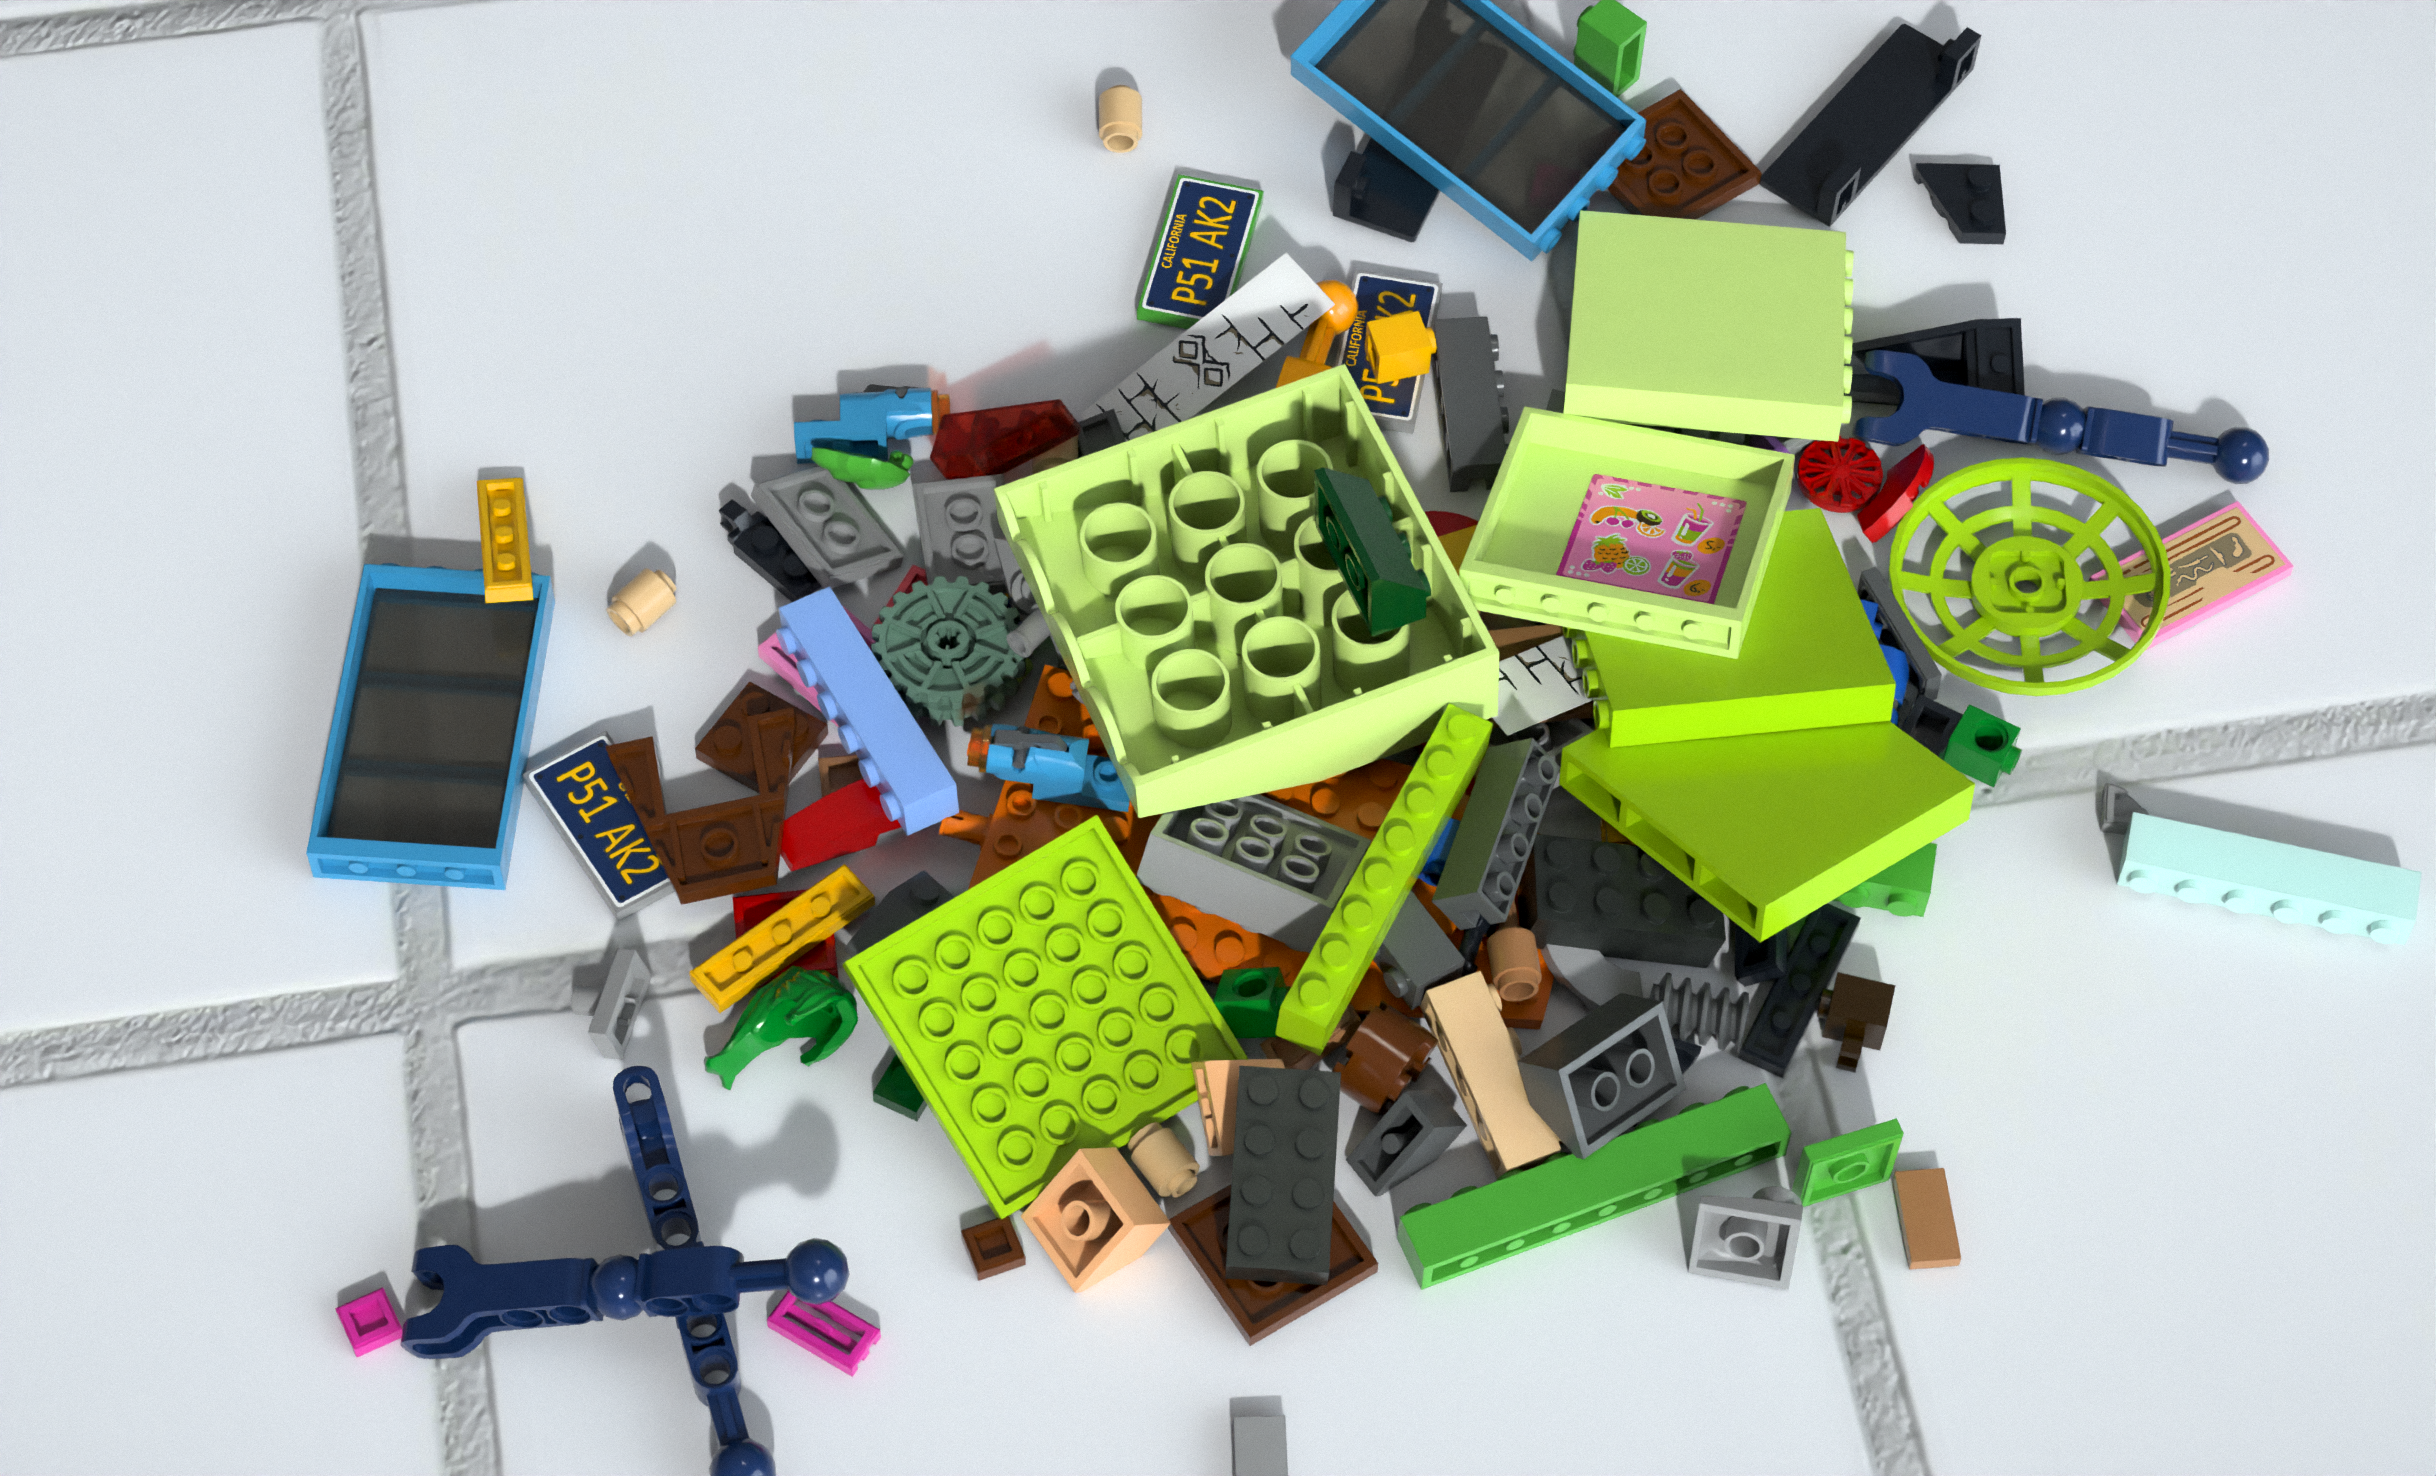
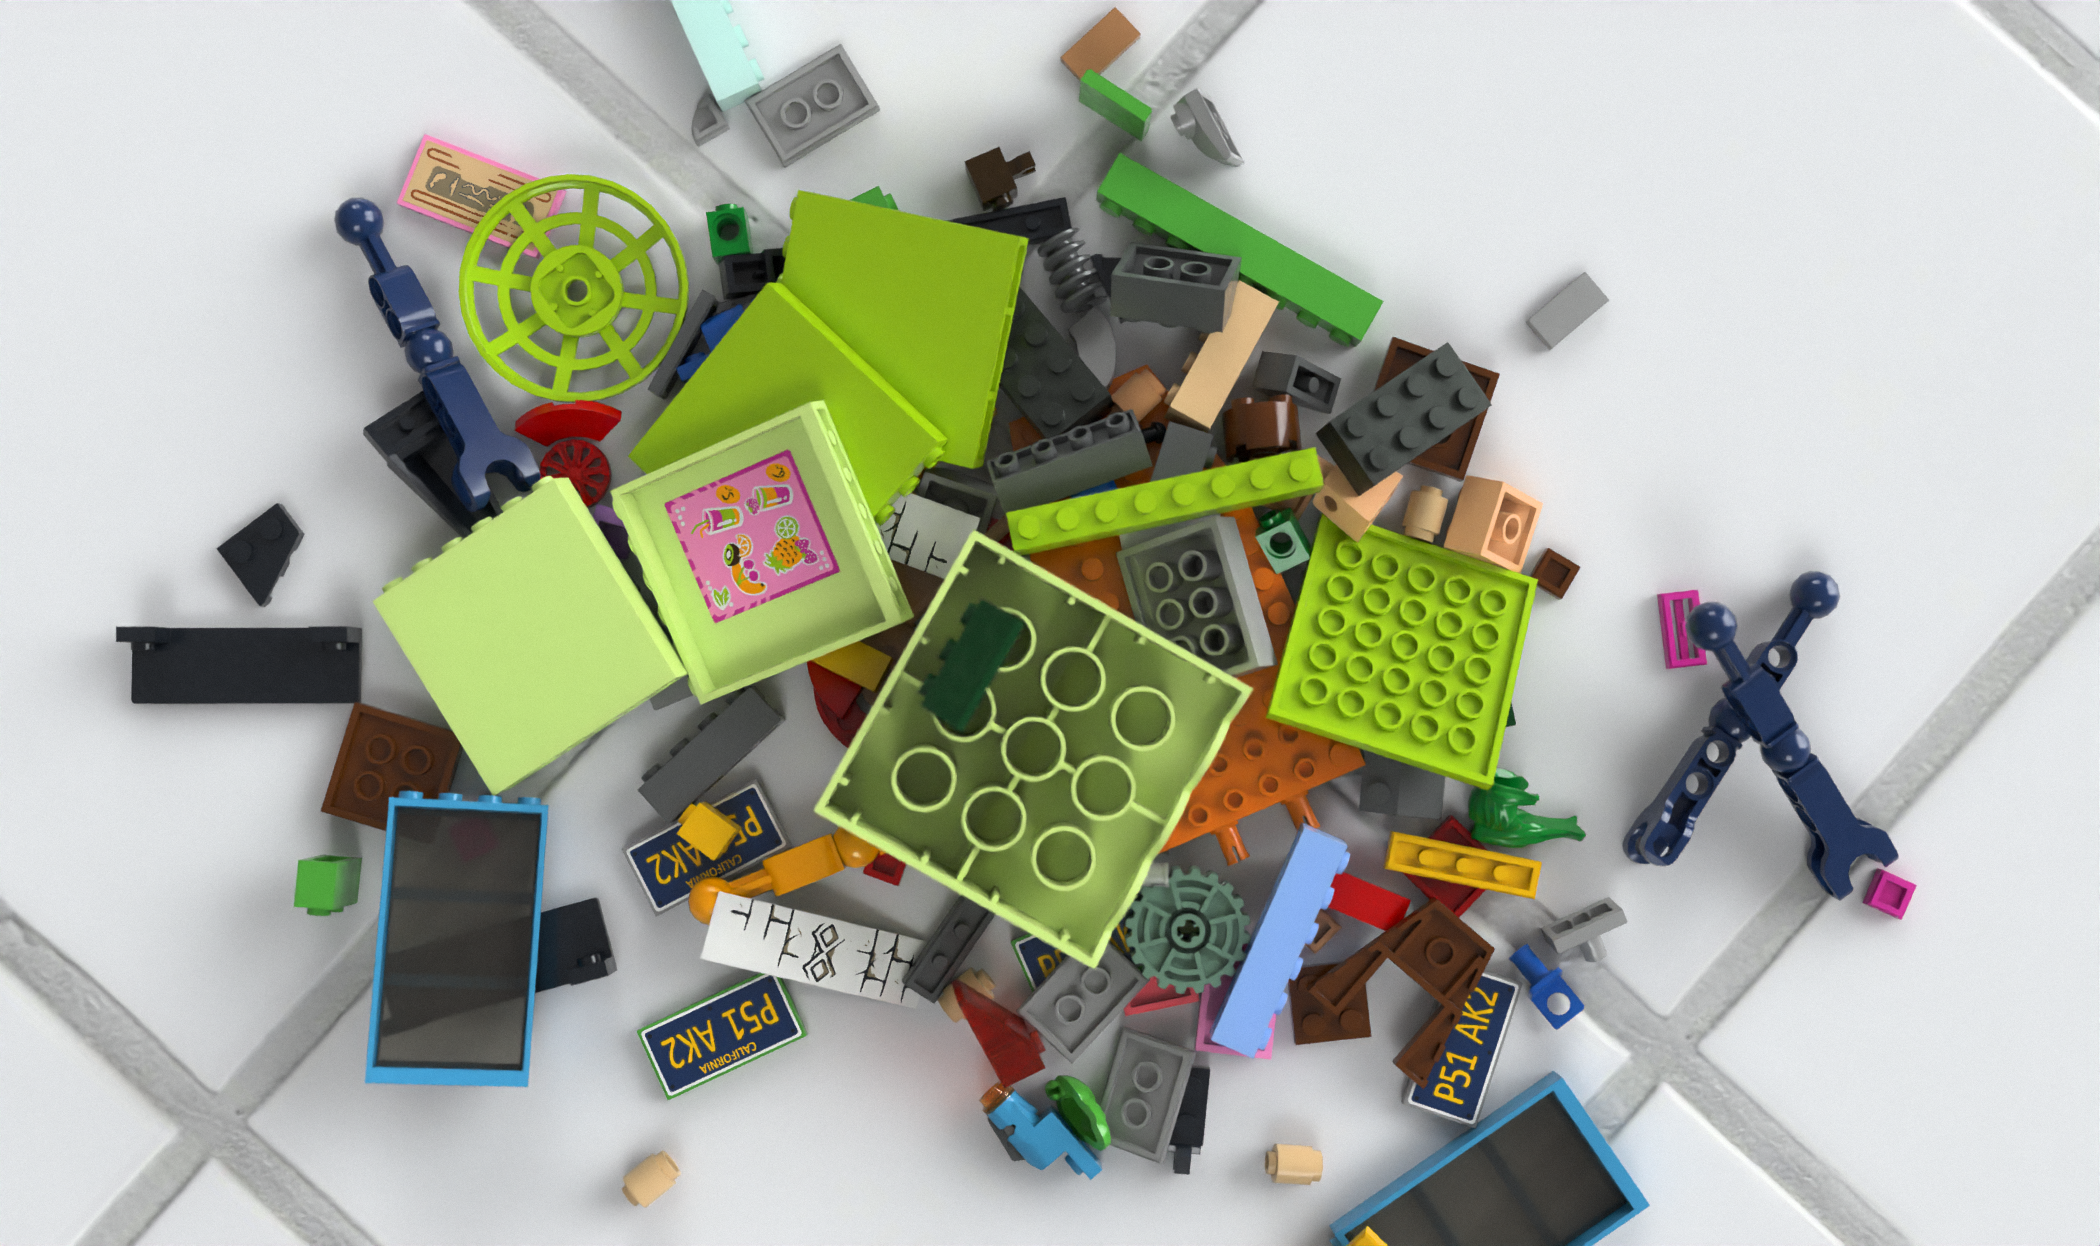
camera: 130 degrees left, 30 degrees up
(594, 930) = (1544, 984): none -> blue bracket
(1051, 762) = (1248, 790): dark azure plate -> none
(2068, 914) = (812, 105): none -> light grey tile

